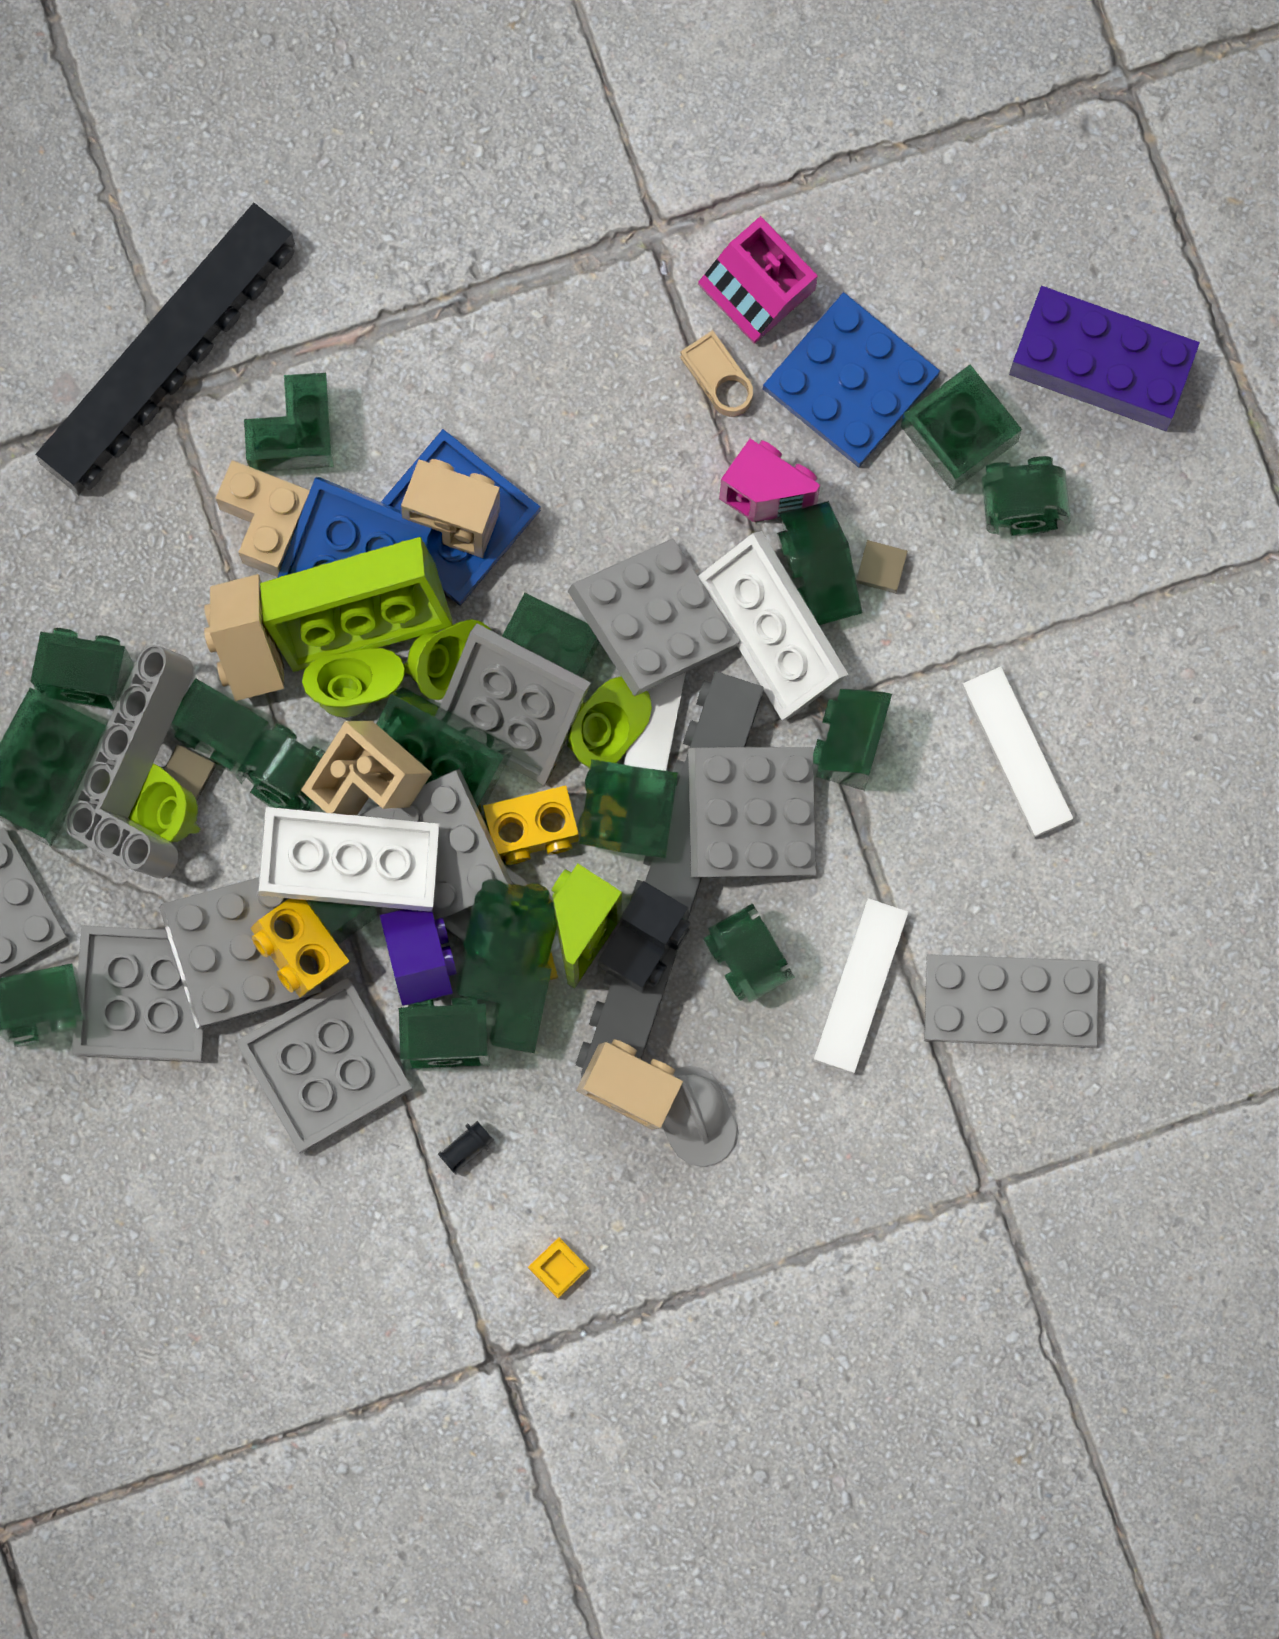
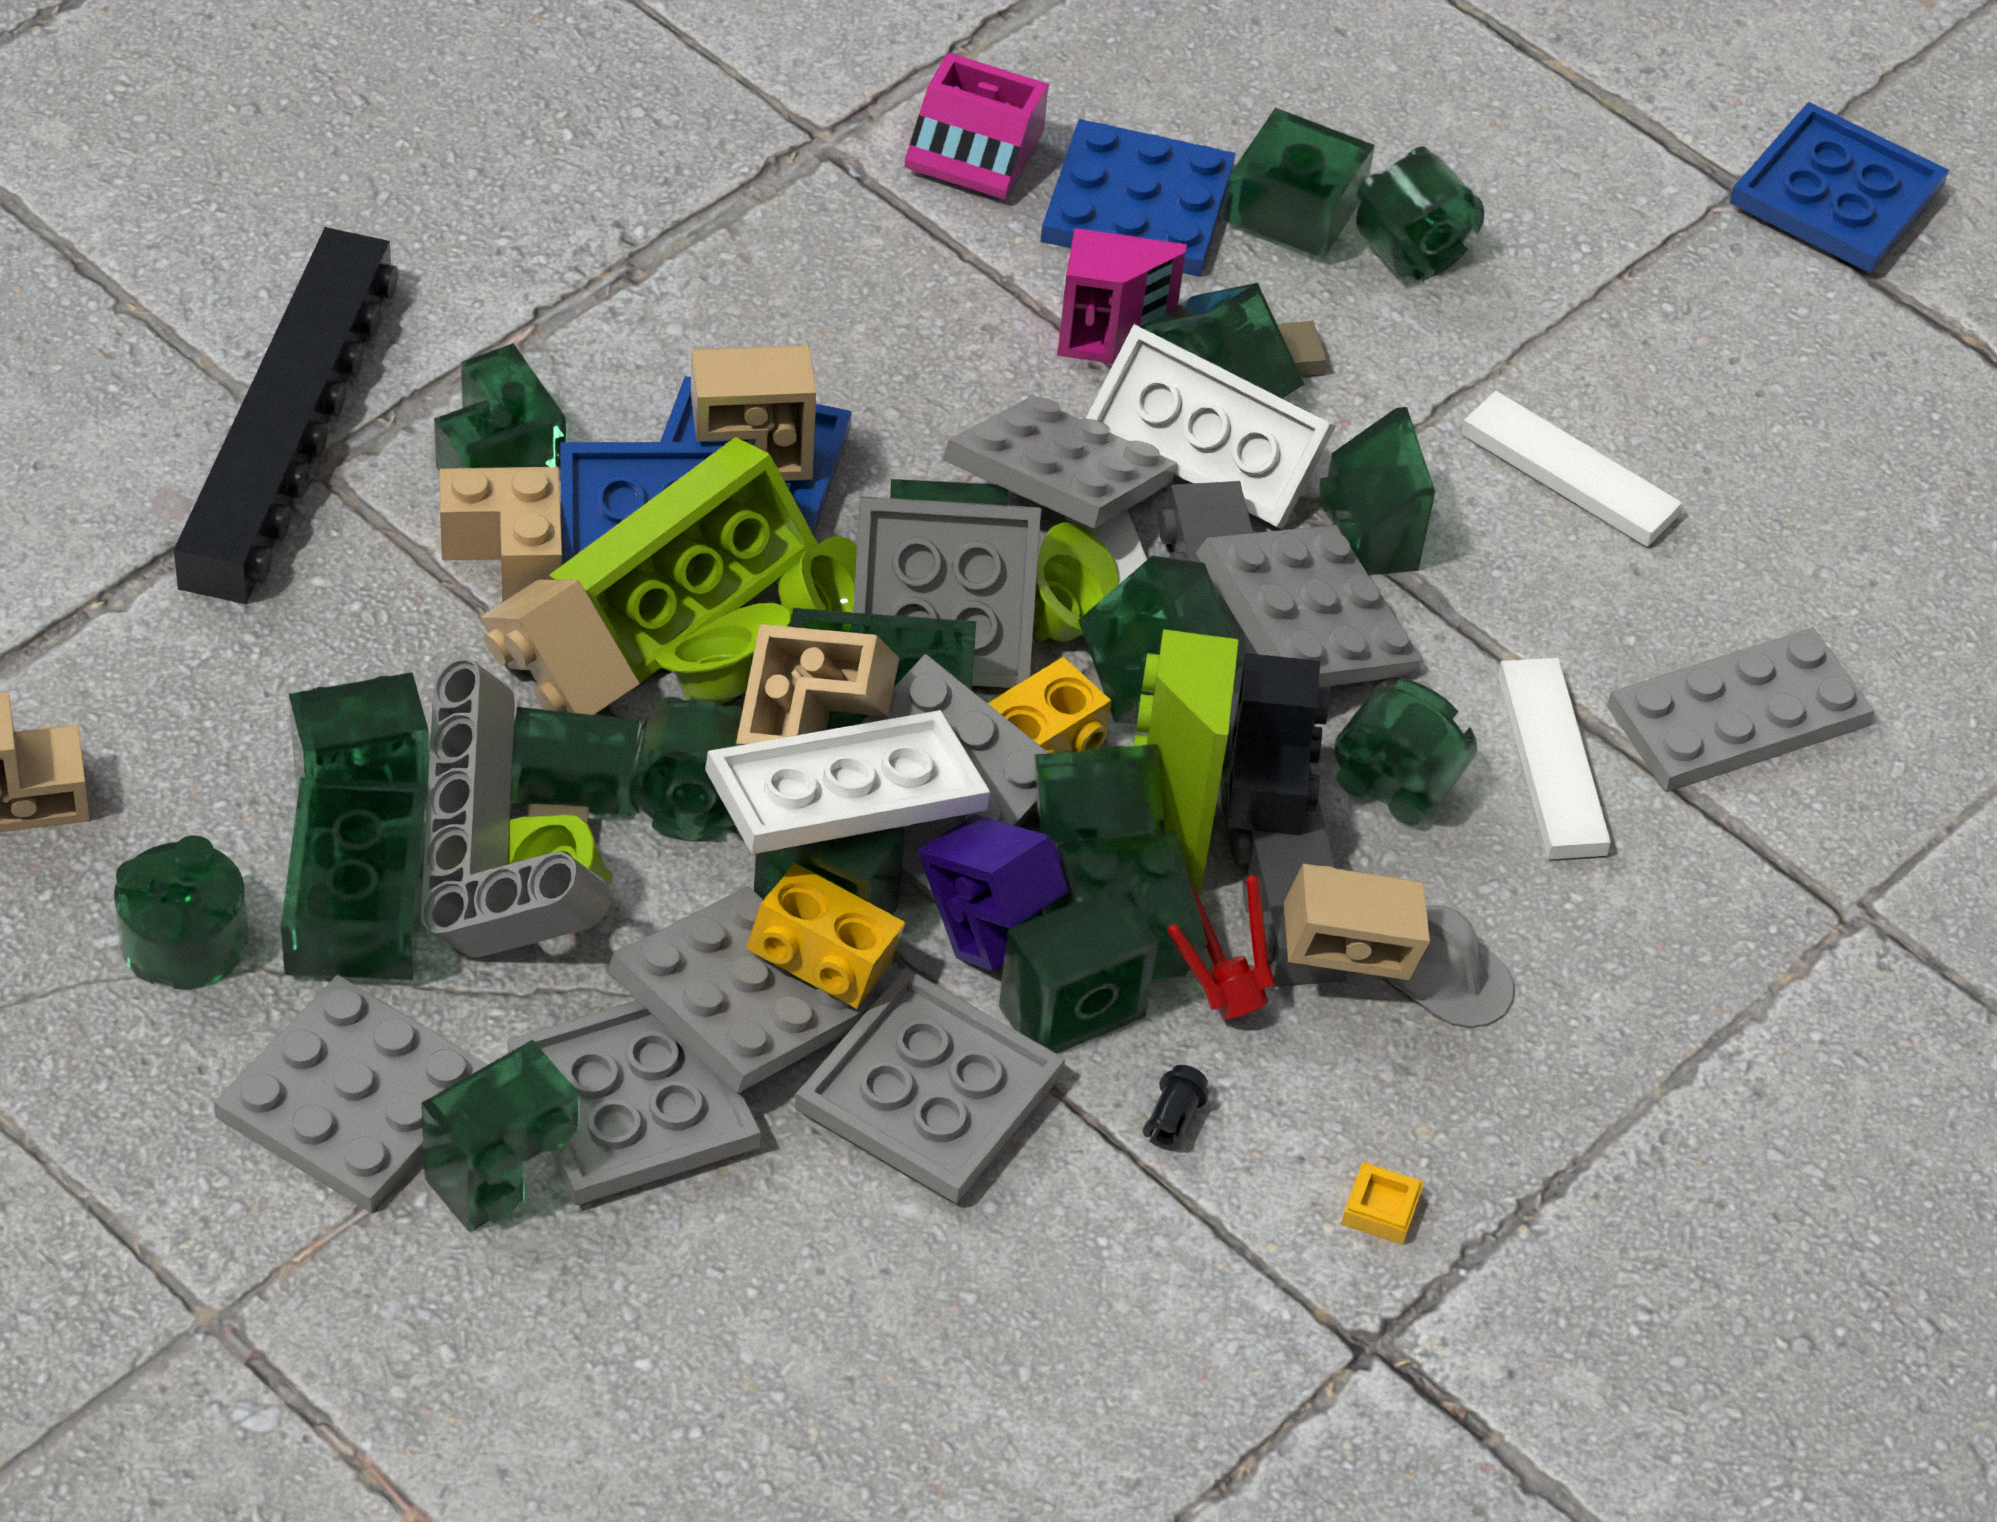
camera: 30 degrees left, 30 degrees down
(547, 1079) = (1234, 984): none -> red plant
(712, 366) = (974, 231): tan piece -> none
(1104, 358) = (1414, 81): dark purple brick -> none

